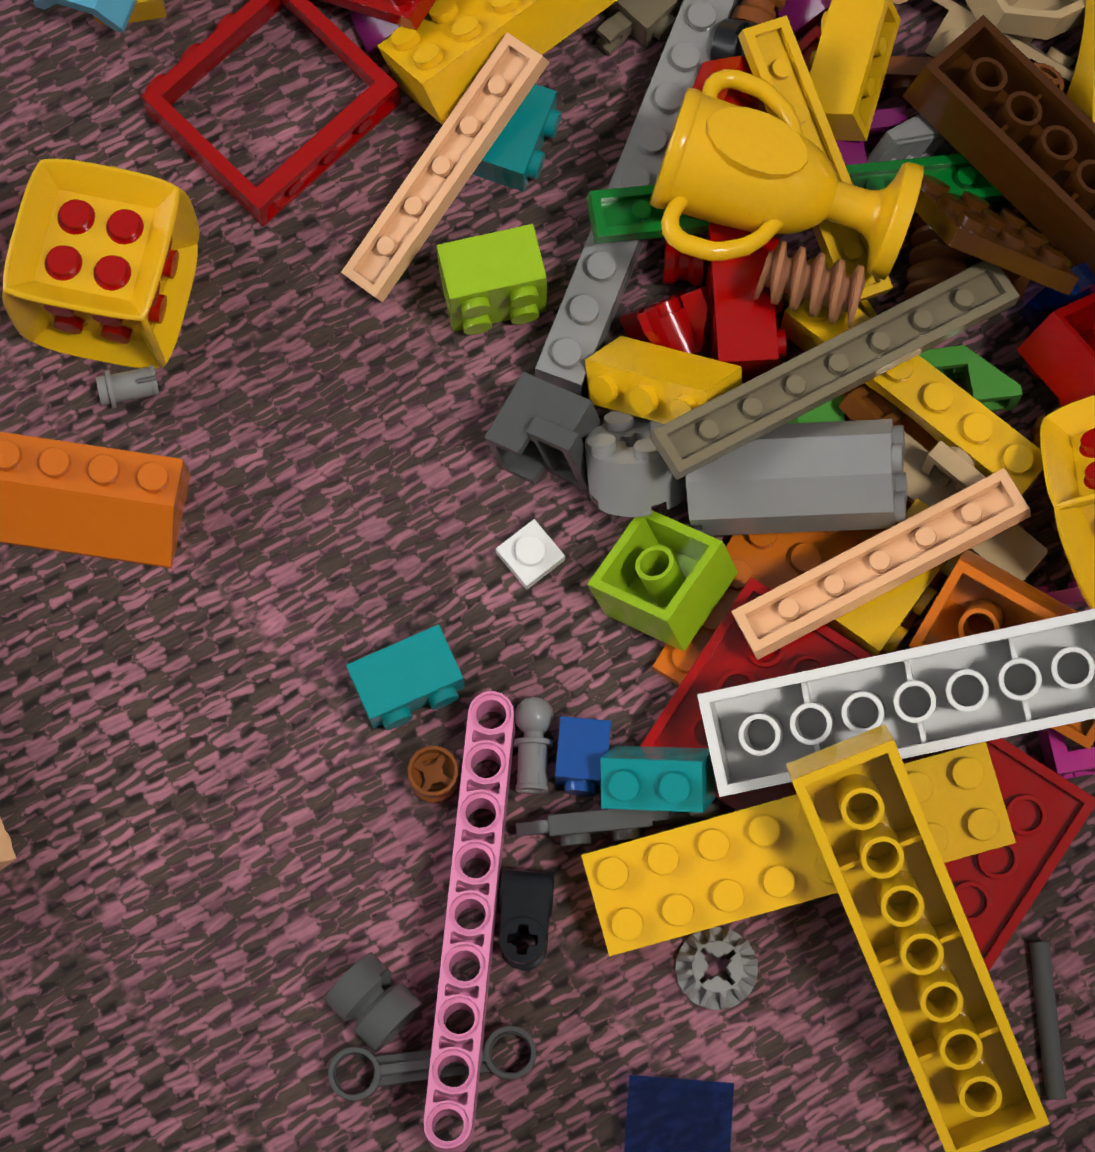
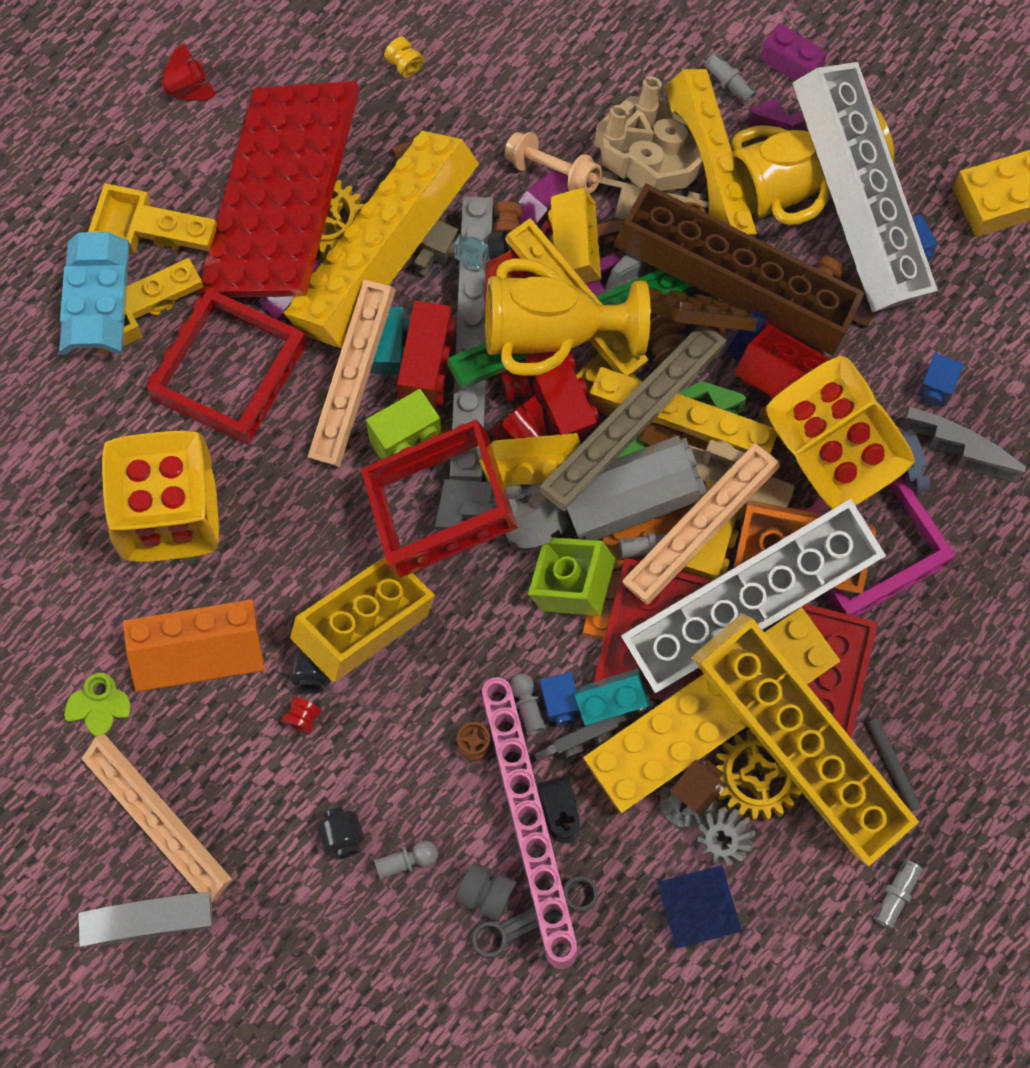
camera: 20 degrees left, 5 degrees down
(125, 386) = (198, 567): light grey pin -> none
(194, 844) = (340, 833): none -> black head
(199, 652) = (301, 715): none -> red wheel
(236, 588) = (306, 674): none -> black head
(303, 915) = (423, 854): none -> light grey pin
(331, 537) = (360, 618): none -> yellow brick
(406, 678) = (436, 688): teal brick -> none
(500, 467) = (450, 540): none -> red window
(530, 554) = (484, 589): white plate -> none
(566, 164) = (426, 352): none -> red brick
(683, 38) = (471, 251): none -> clear light blue plate
(739, 956) = (699, 786): none -> reddish brown brick
(754, 1043) = (719, 844): none -> light grey gear
(779, 565) = (639, 545): none -> light grey pin
(811, 283) = (602, 369): nougat piece -> none
(839, 943) = (763, 803): none -> yellow gear

